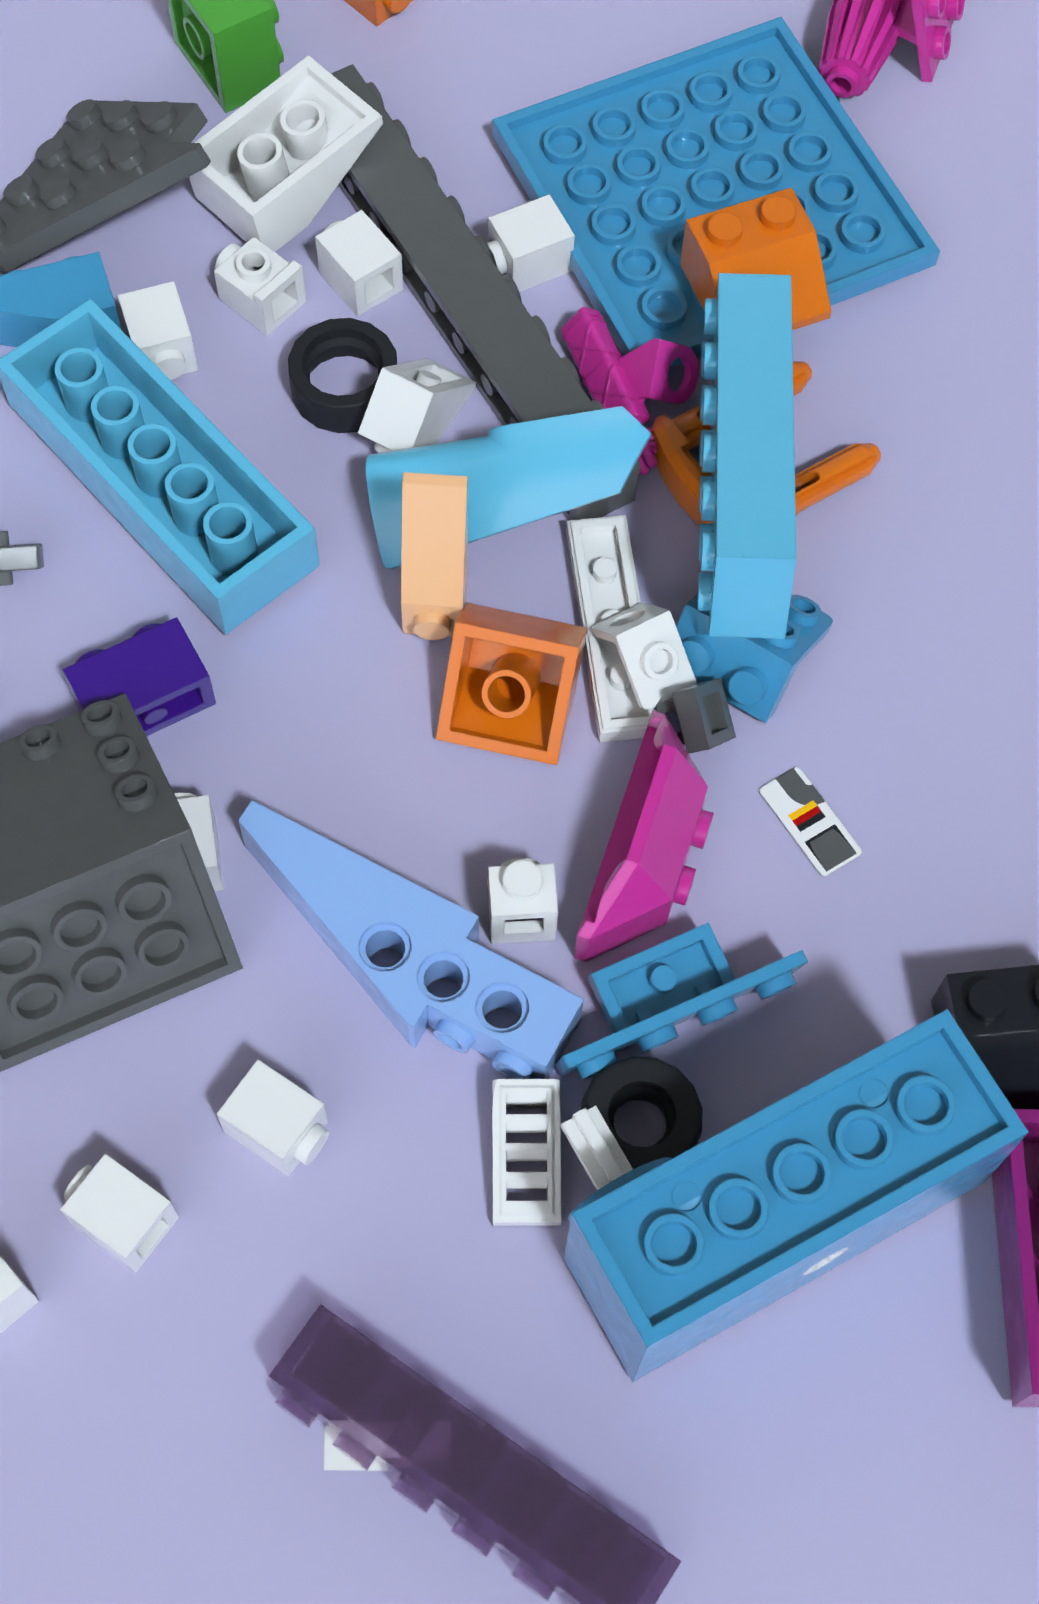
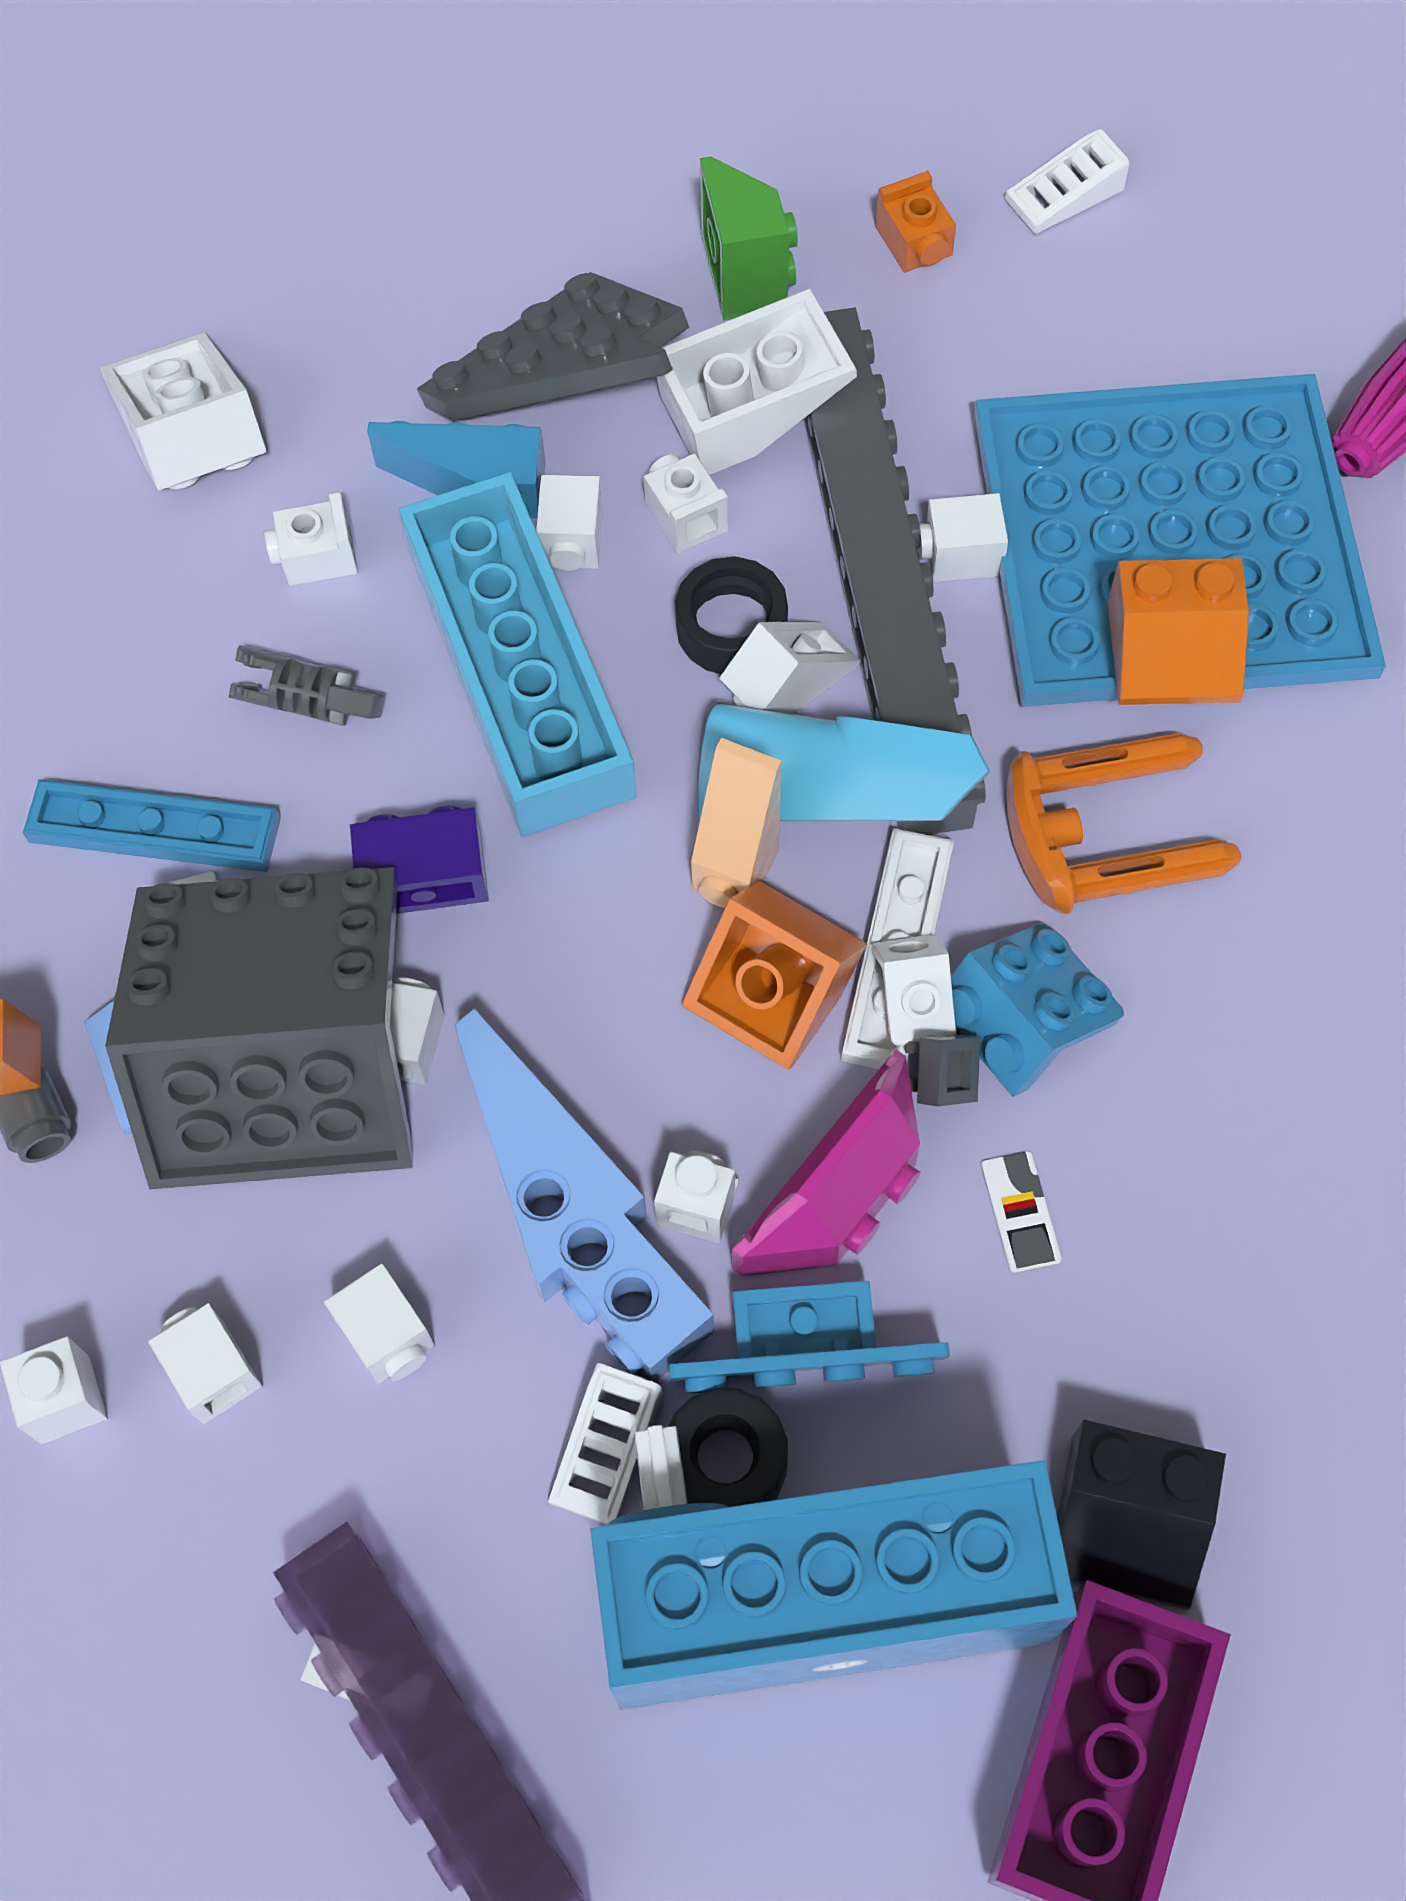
camera: 25 degrees right, 0 degrees up
(359, 262) = (789, 507): white brick -> none
(629, 378) = (1004, 705): dark pink piece -> none
(749, 458) = (1080, 823): medium azure brick -> none

